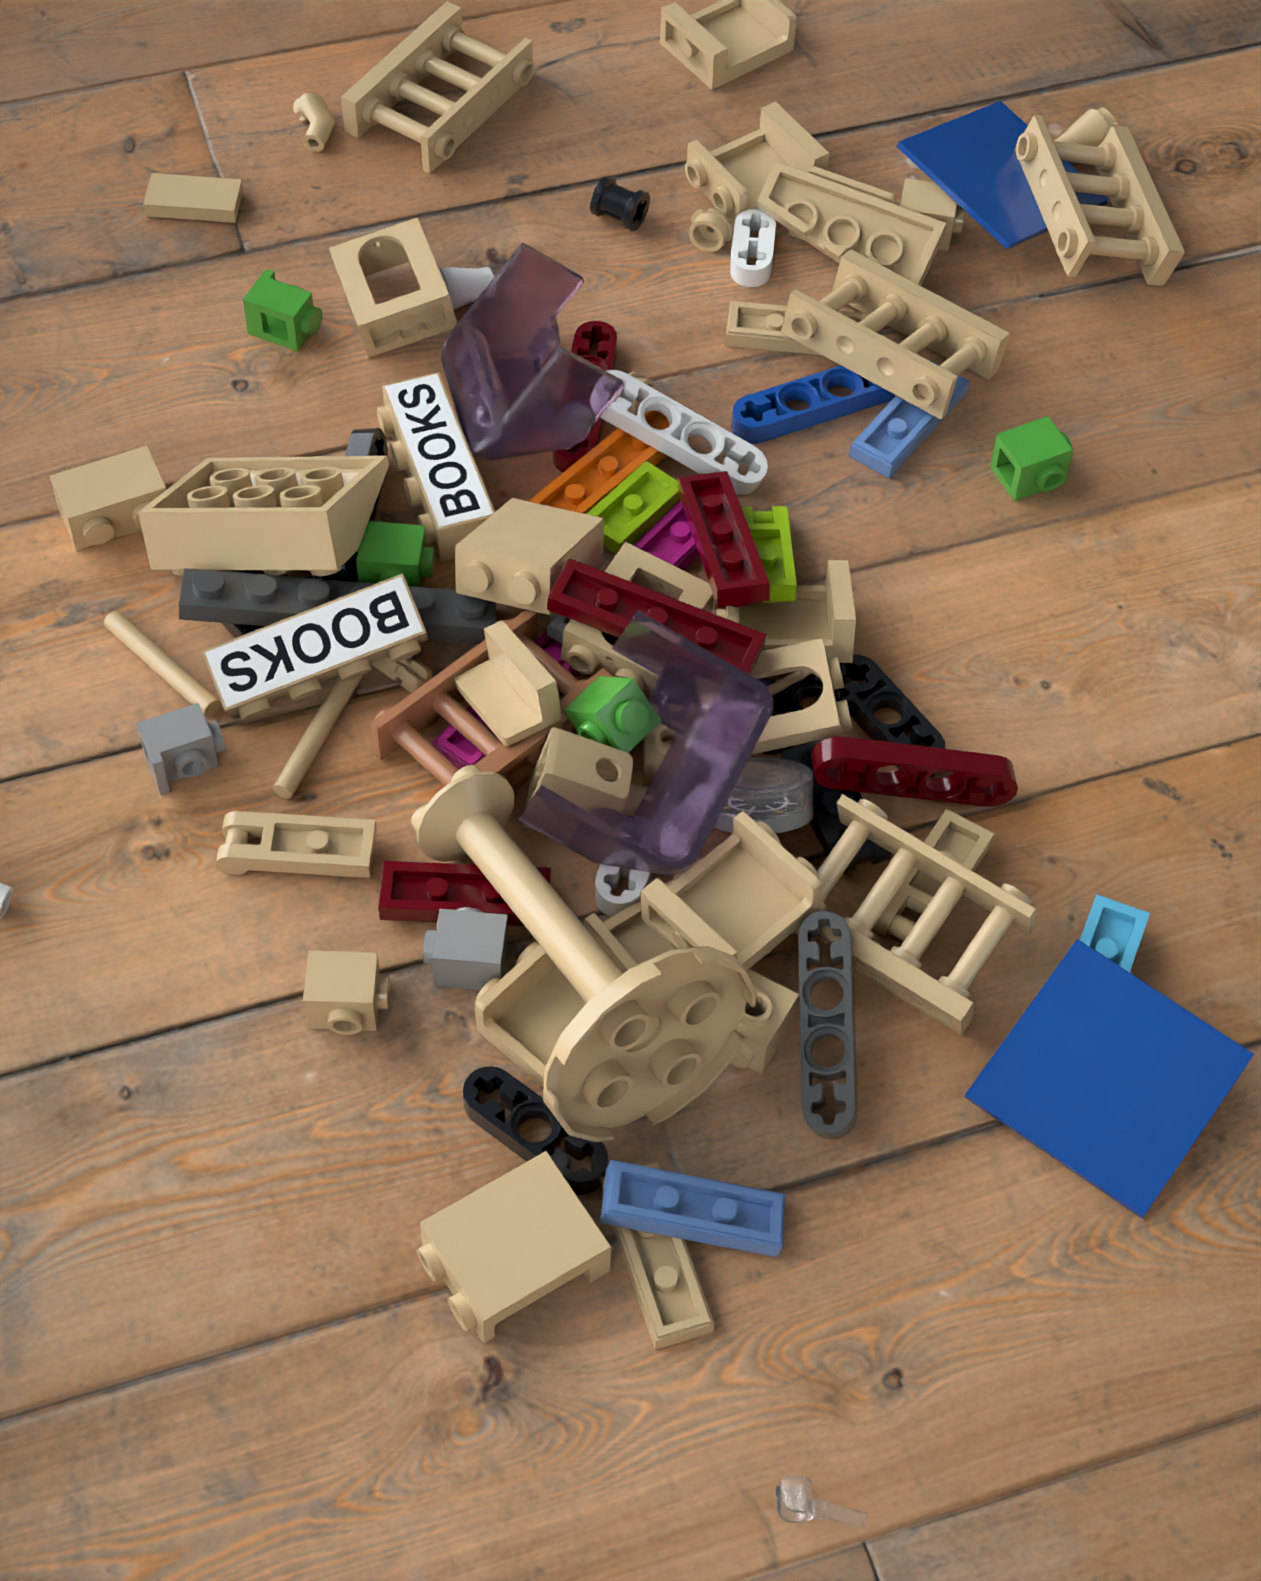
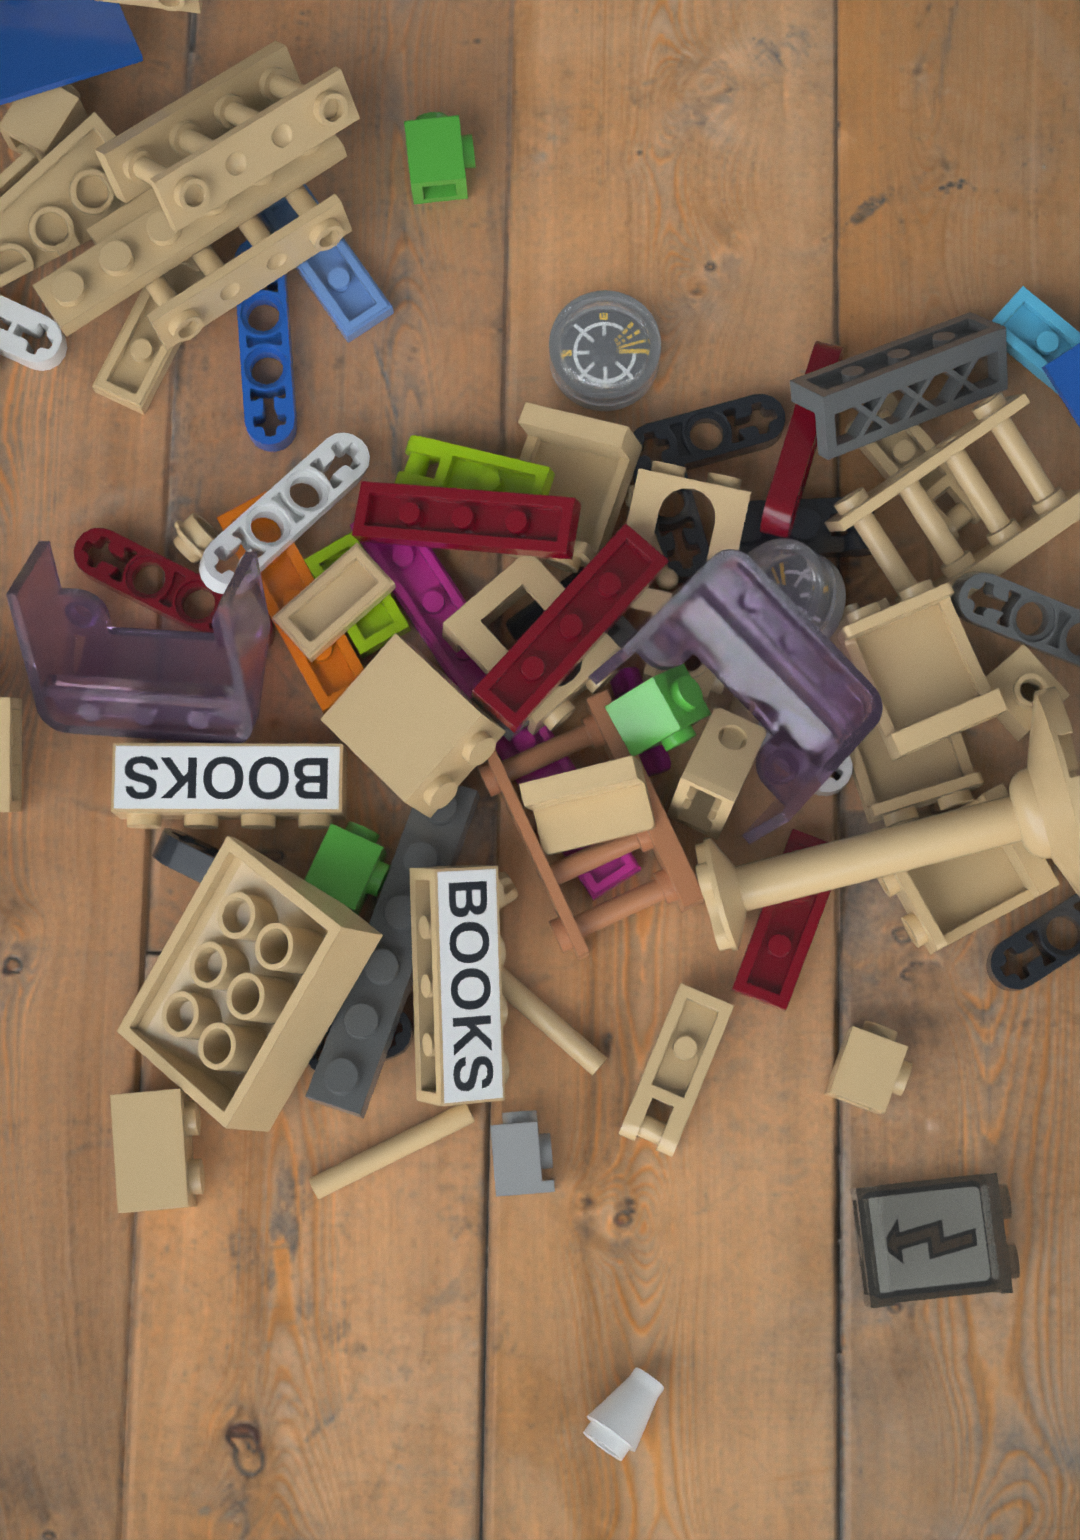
camera: 65 degrees left, 25 degrees up
(195, 1090) = (933, 1239): none -> clear smoke panel
(467, 948) = (856, 936): light grey brick -> none
(617, 484) = (334, 602): none -> tan tile
(892, 304) = (151, 248): none -> tan plate
(924, 613) = (604, 350): none -> clear piece
(968, 296) = (227, 135): none -> tan fence
(1017, 817) = (893, 367): none -> dark grey fence

